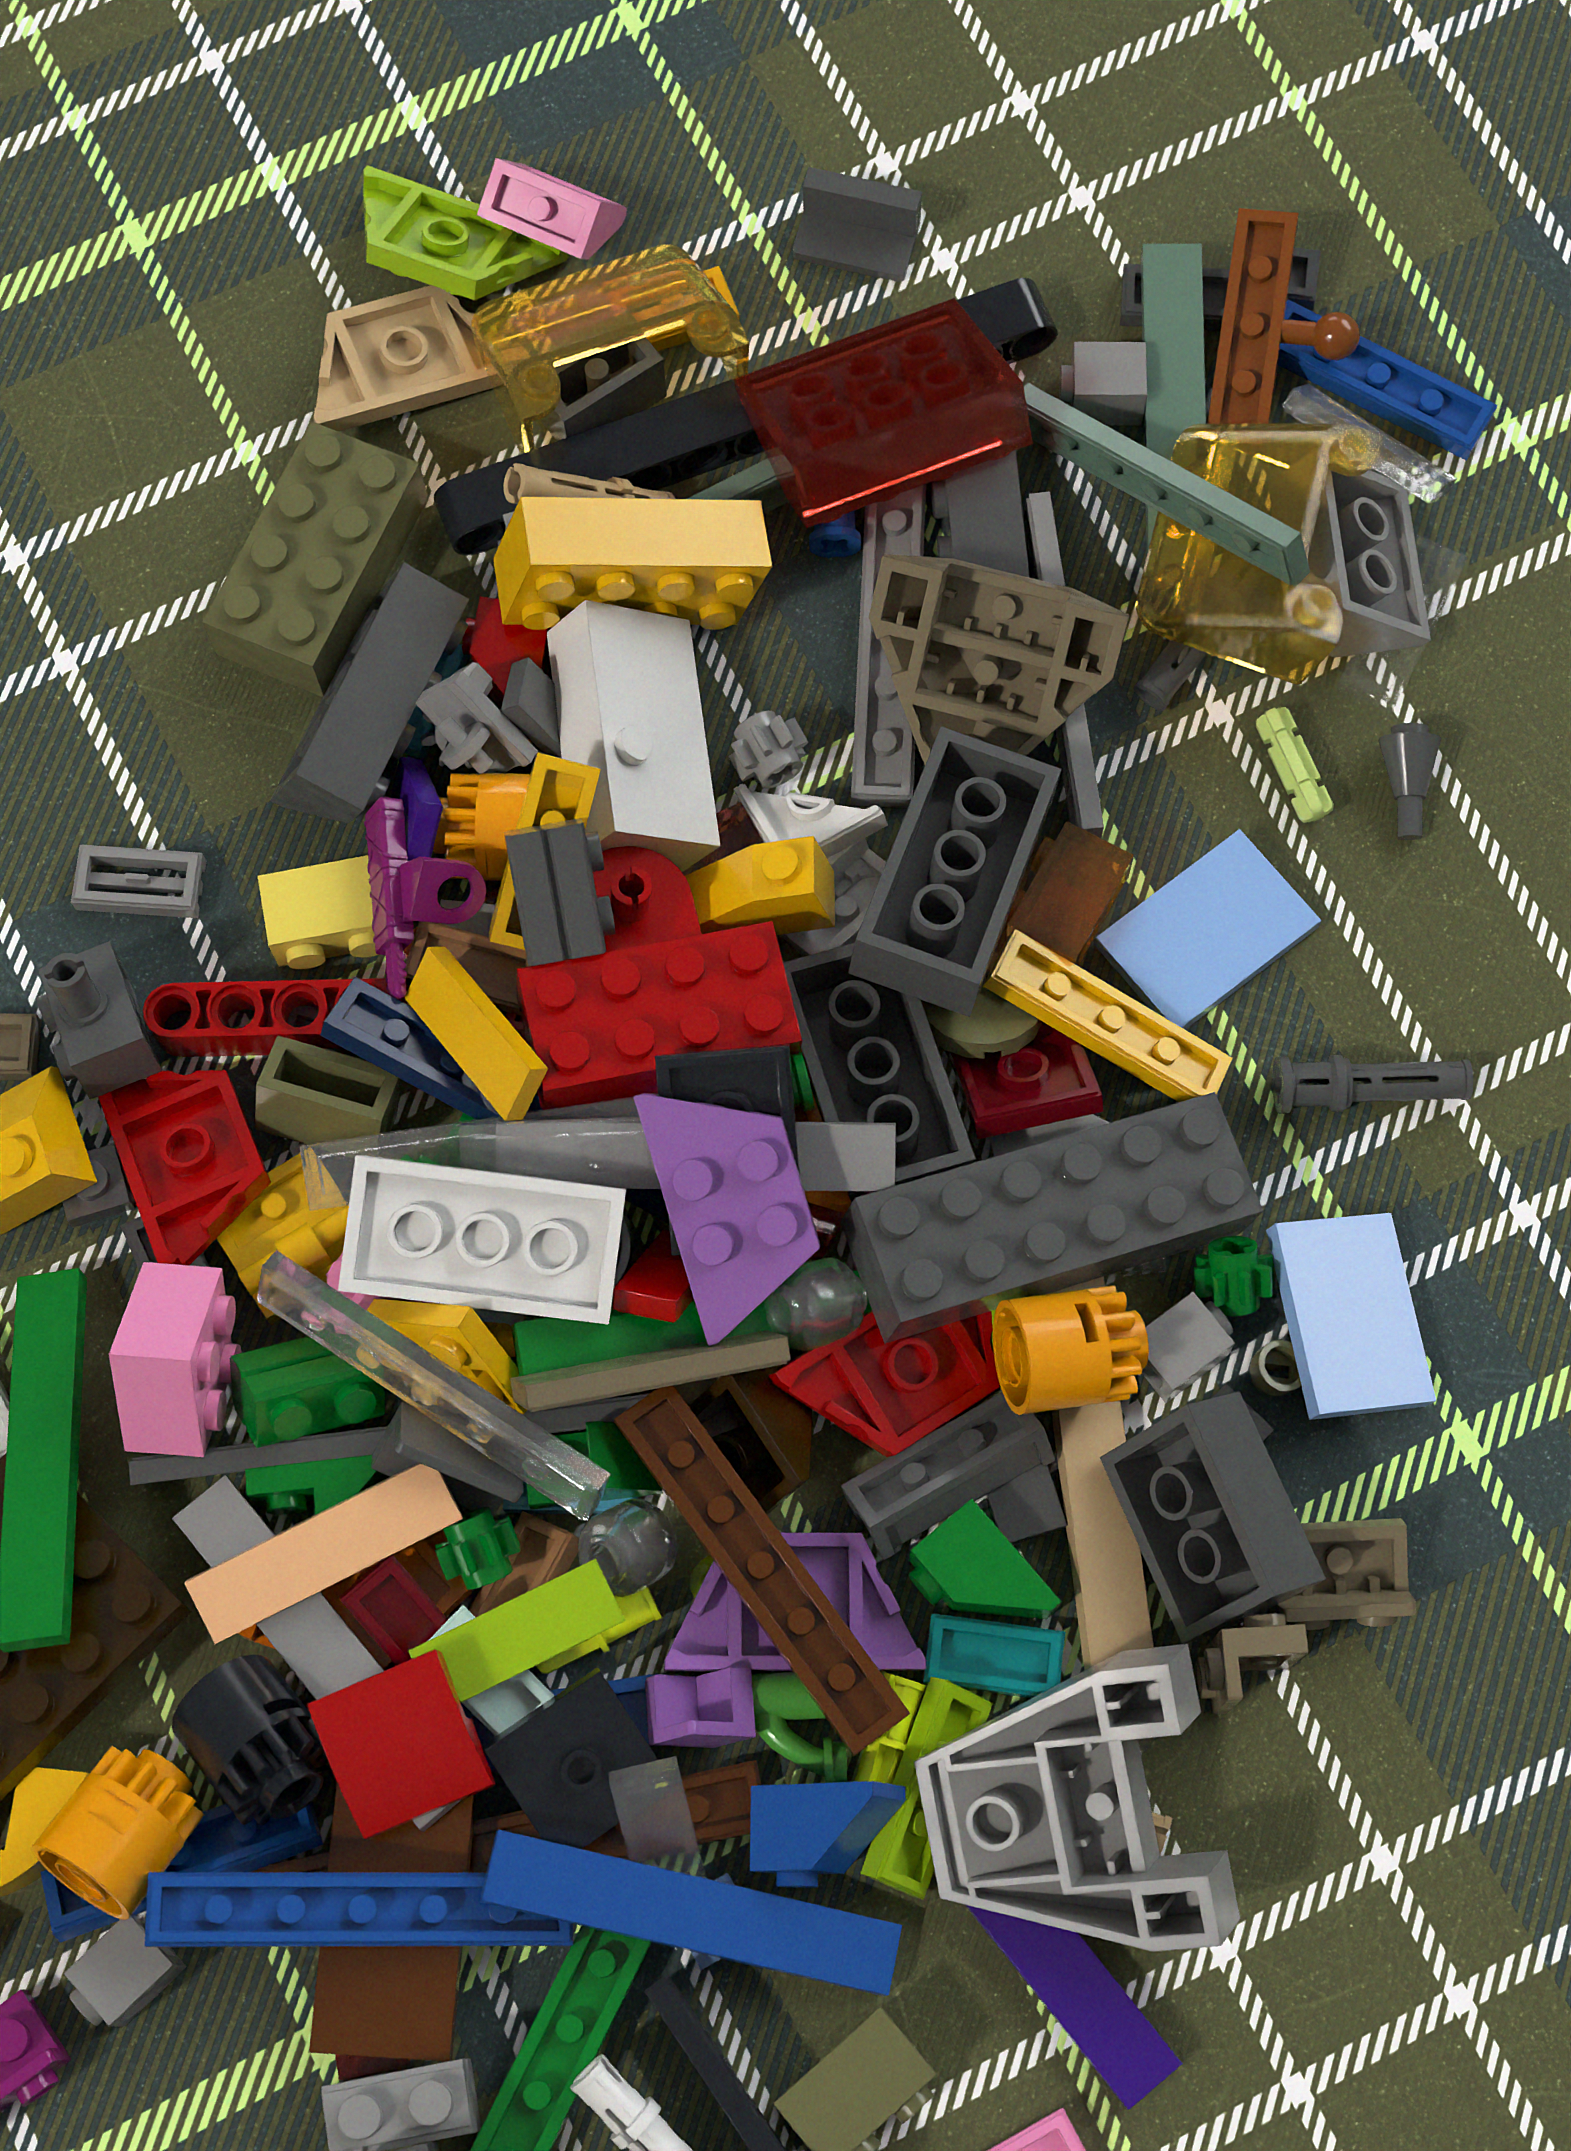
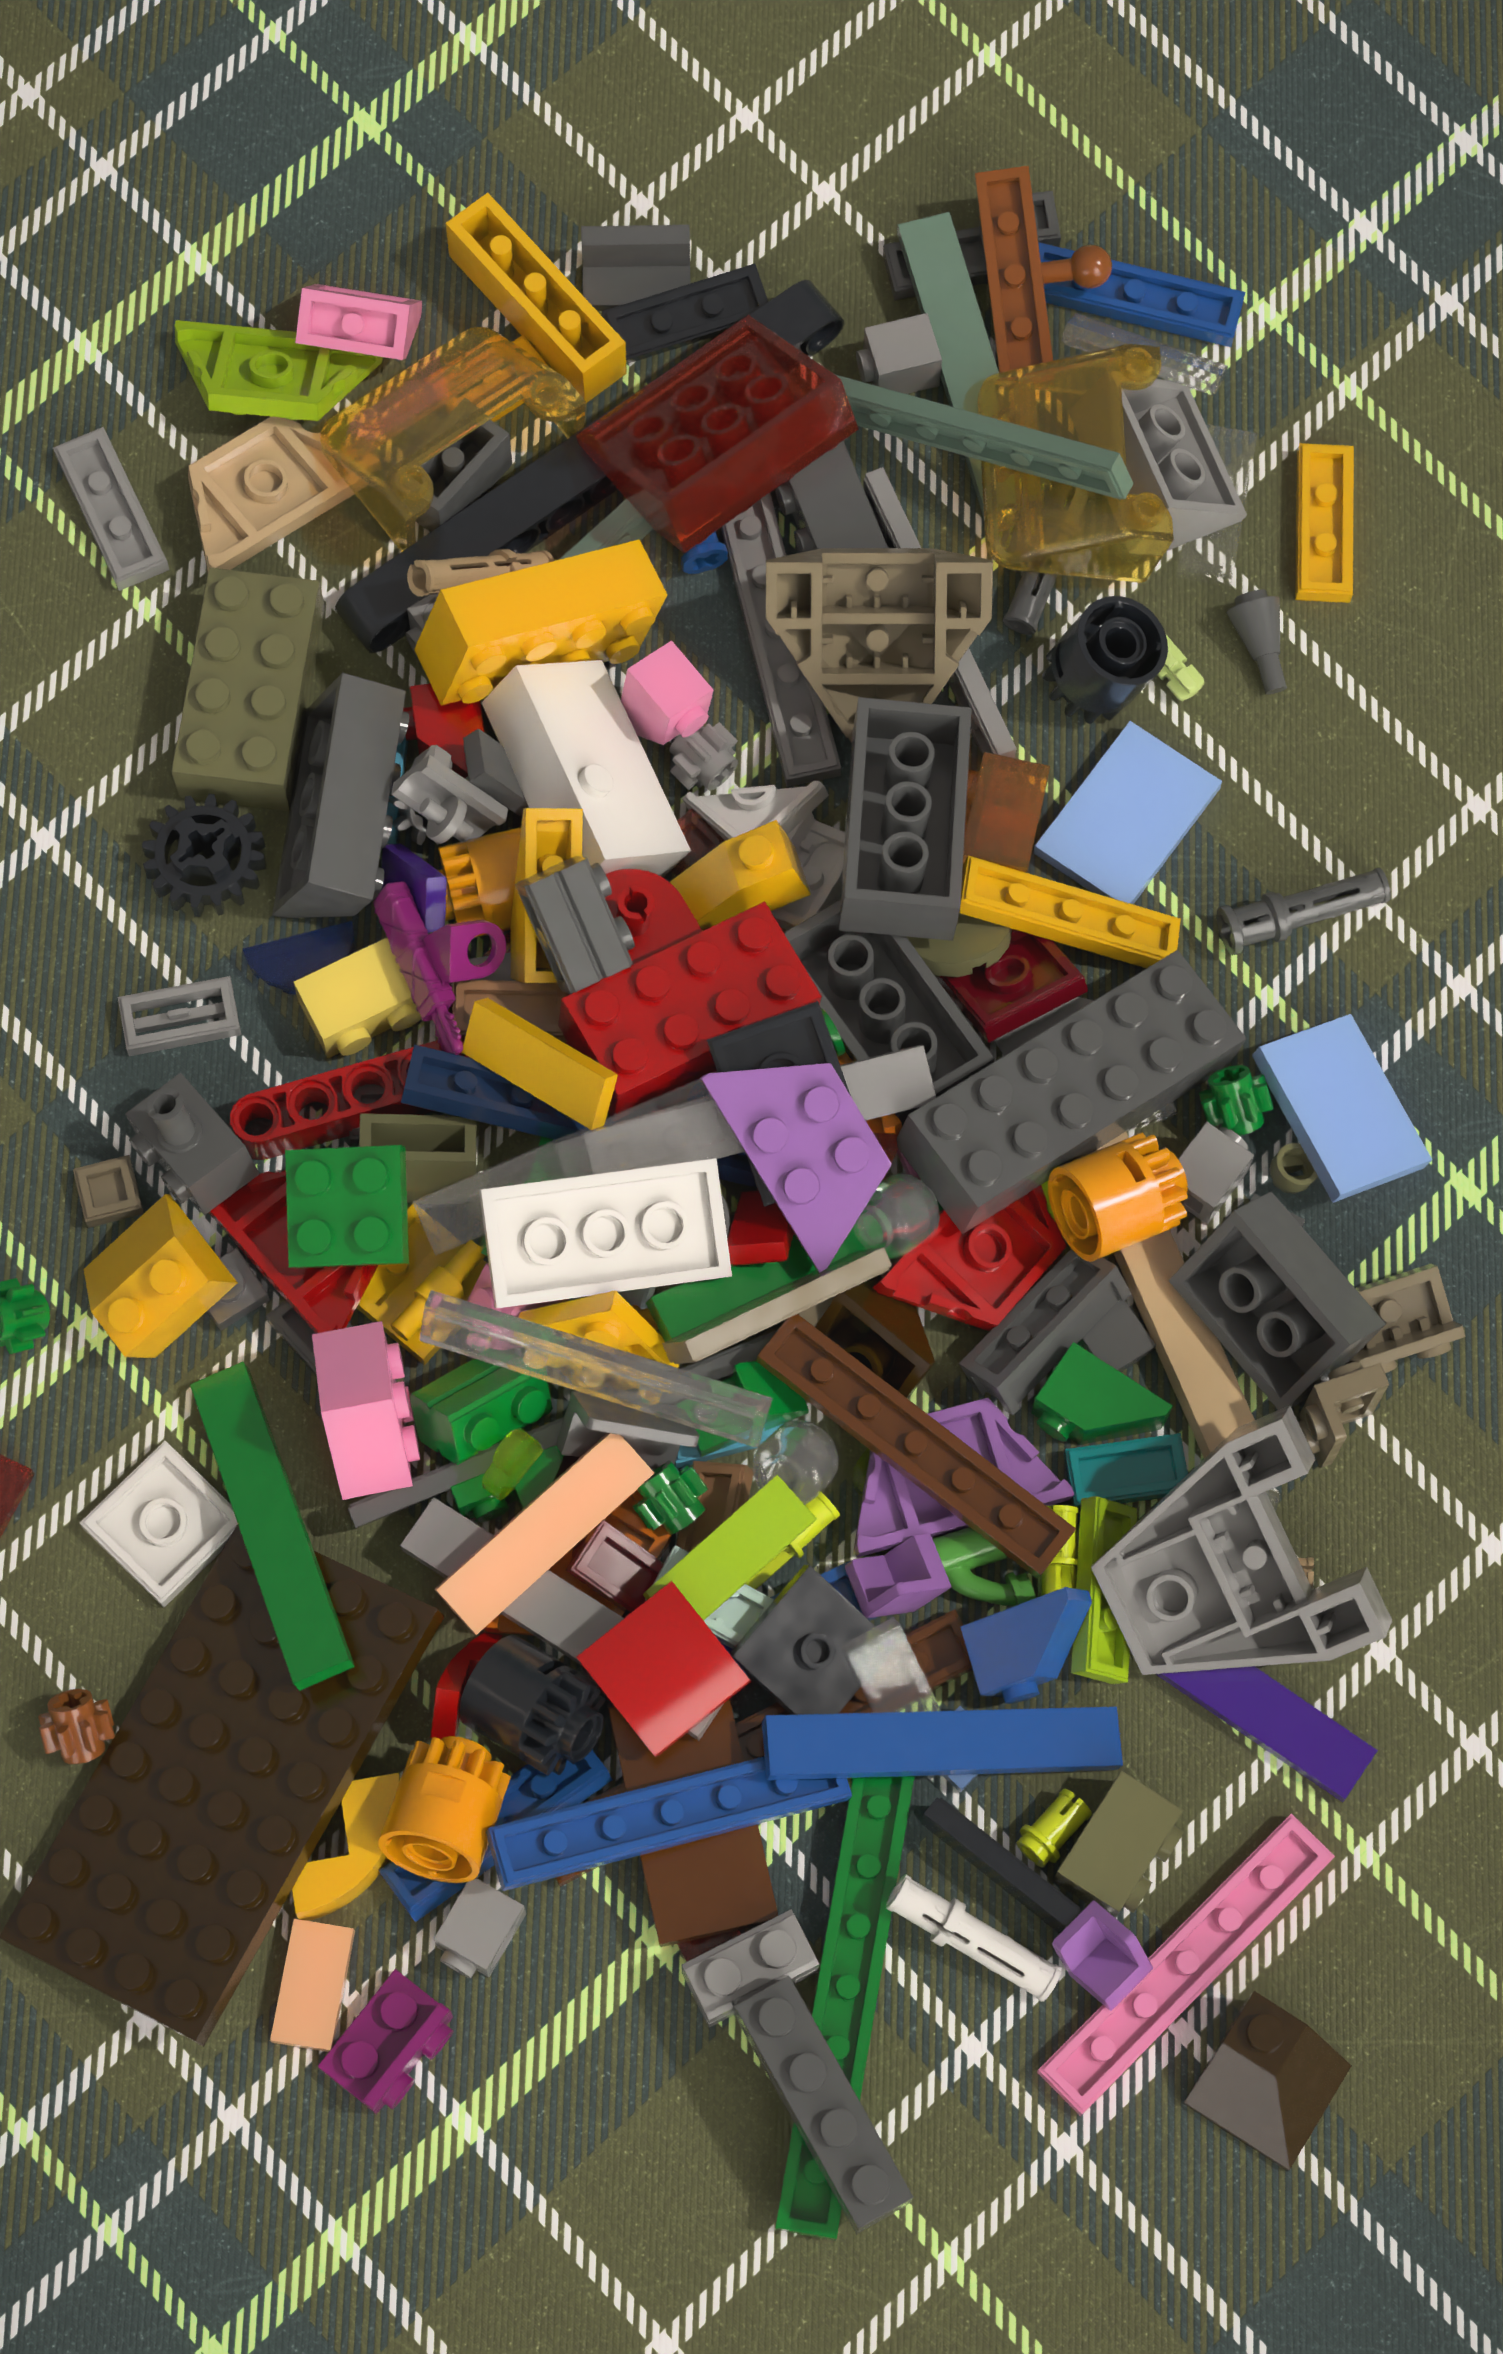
camera: 20 degrees left, 0 degrees up
(166, 1697) = (452, 1684): none -> red slope
(196, 698) = (193, 876): none -> black gear
(227, 1133) = (347, 1206): none -> green plate
(242, 341) = (111, 508): none -> light grey tile
(282, 849) = (296, 956): none -> clear blue tile
(312, 1462) = (511, 1462): none -> clear neon green tile
(740, 230) = (536, 297): none -> yellow brick
(740, 673) = (666, 696): none -> bright pink slope
(789, 2045) = (1053, 1829): none -> neon yellow pin
(889, 284) = (686, 313): none -> black tile
(1231, 753) = (1106, 657): none -> black gear
(1514, 671) = (1324, 523): none -> yellow tile

